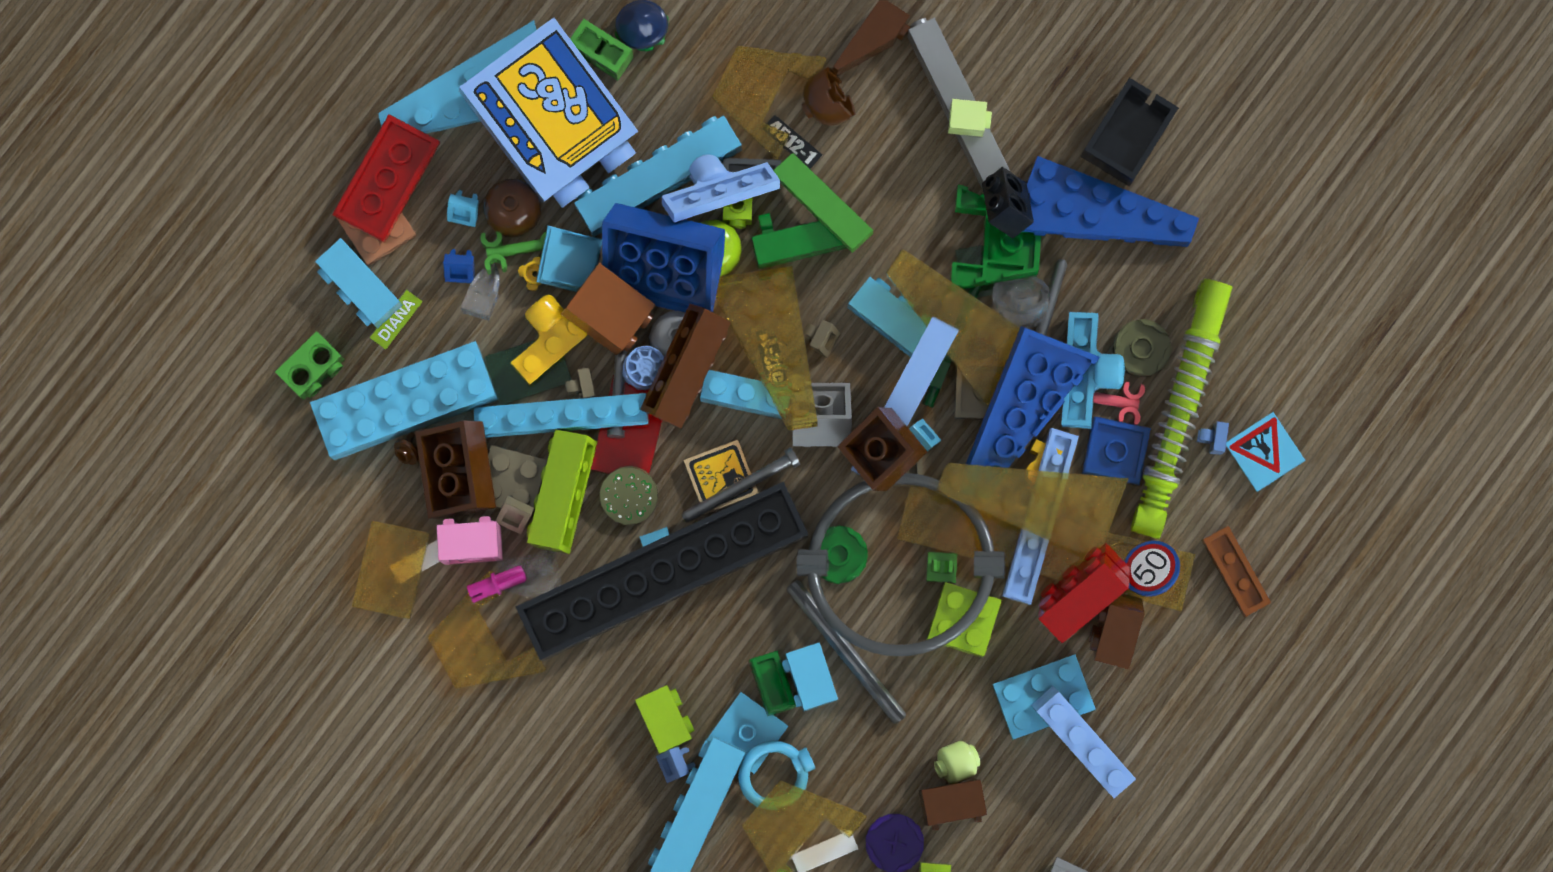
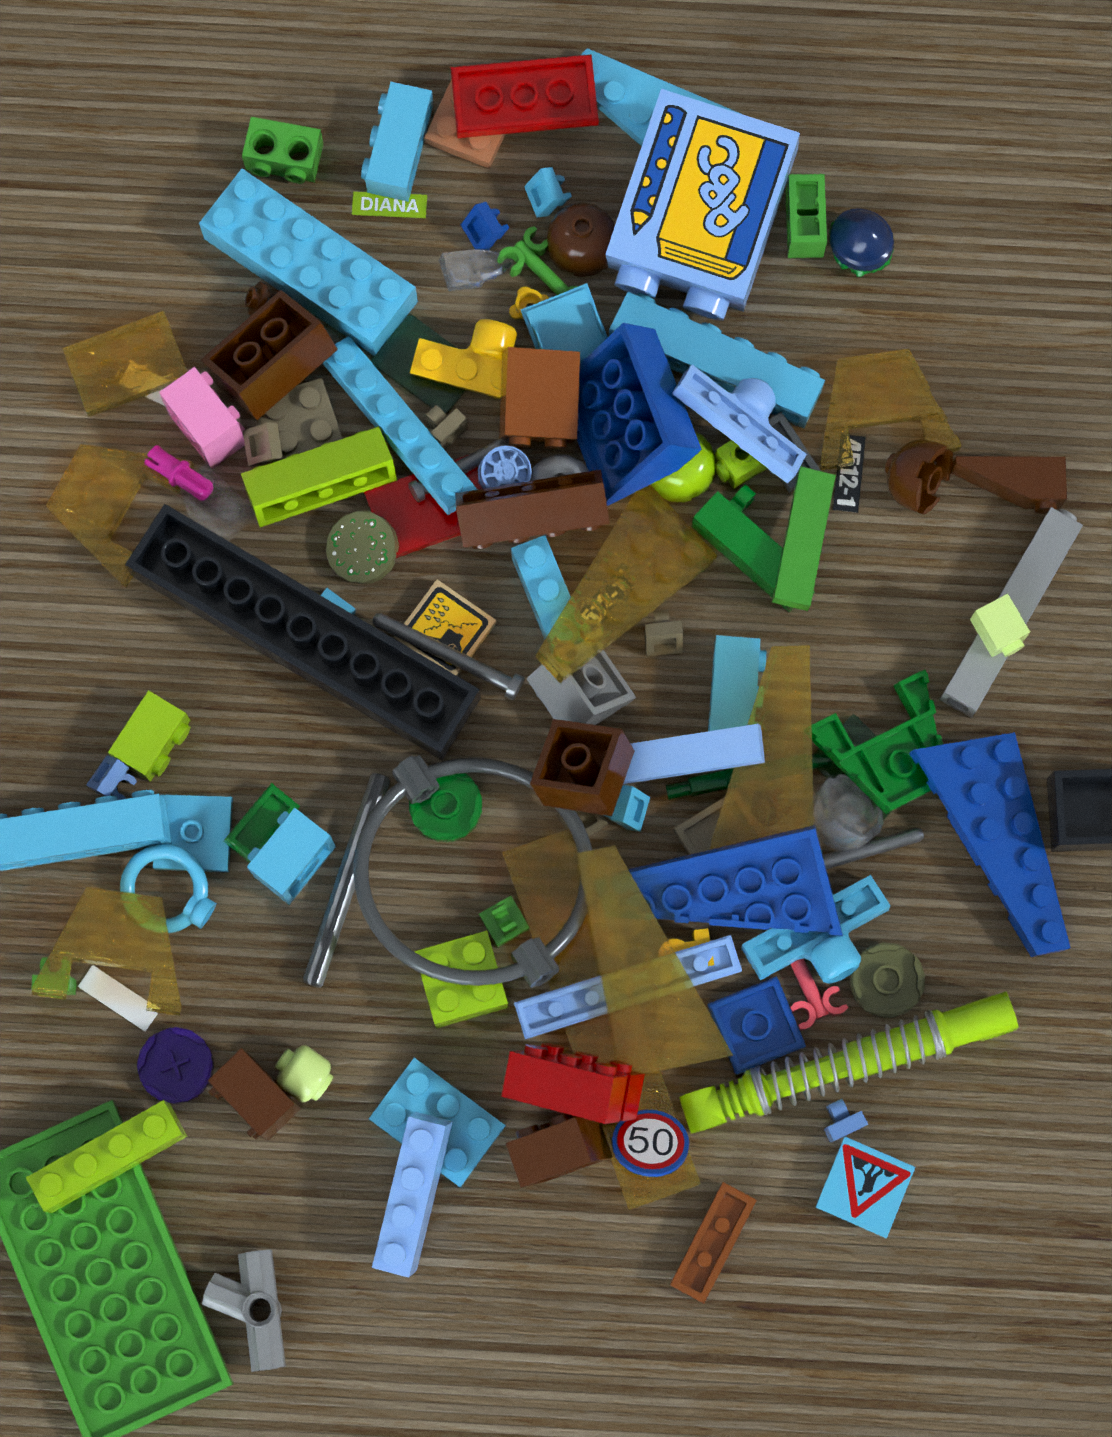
camera: 60 degrees right, 5 degrees down
(1007, 202) = (939, 726): black brick -> none

